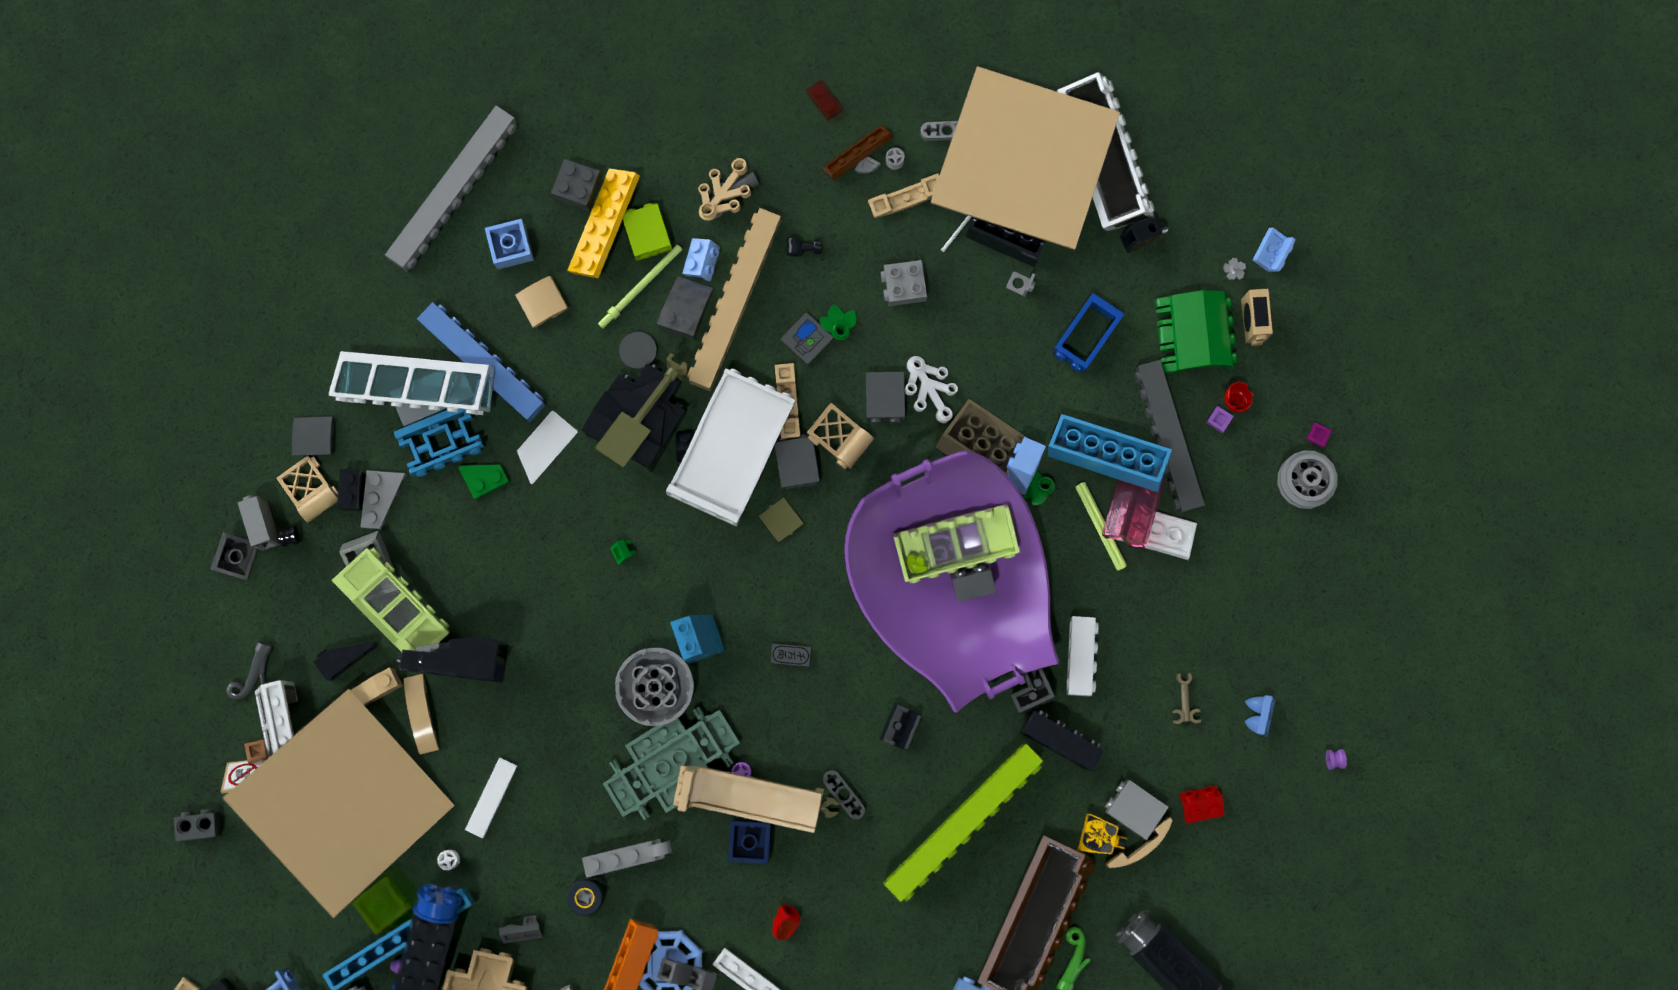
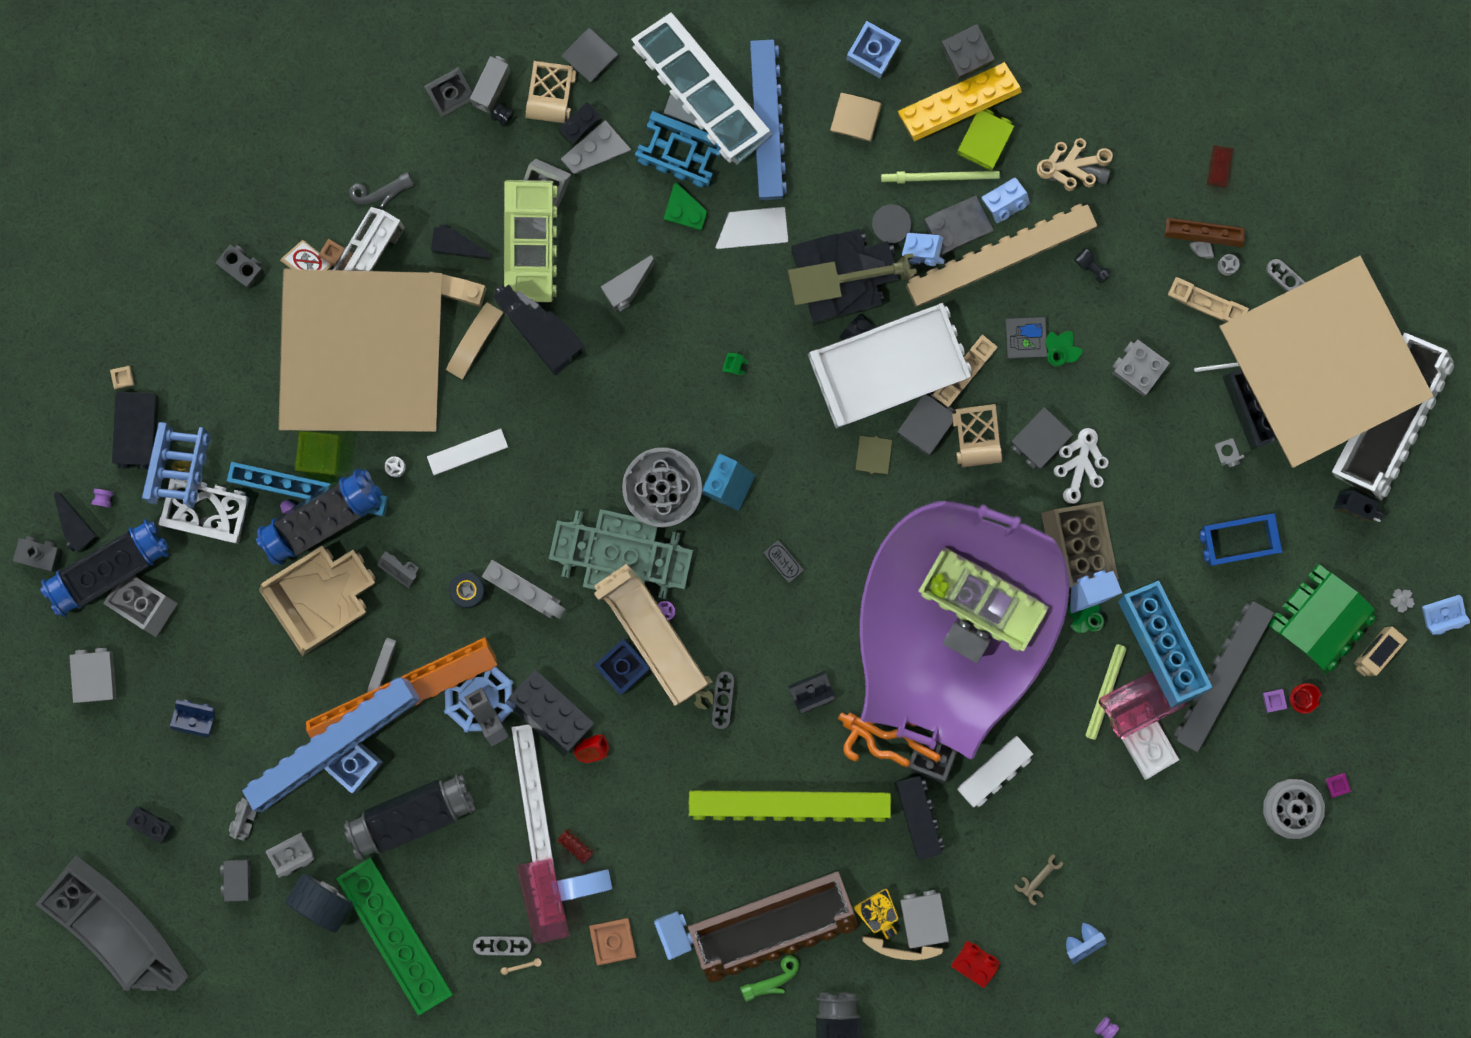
camera: 45 degrees right, 5 degrees up
(491, 571) = (626, 285): none -> light grey slope
(678, 343) = (924, 248): none -> light blue bracket
(729, 927) = (549, 712): none -> black brick
(957, 719) = (861, 728): none -> orange plant

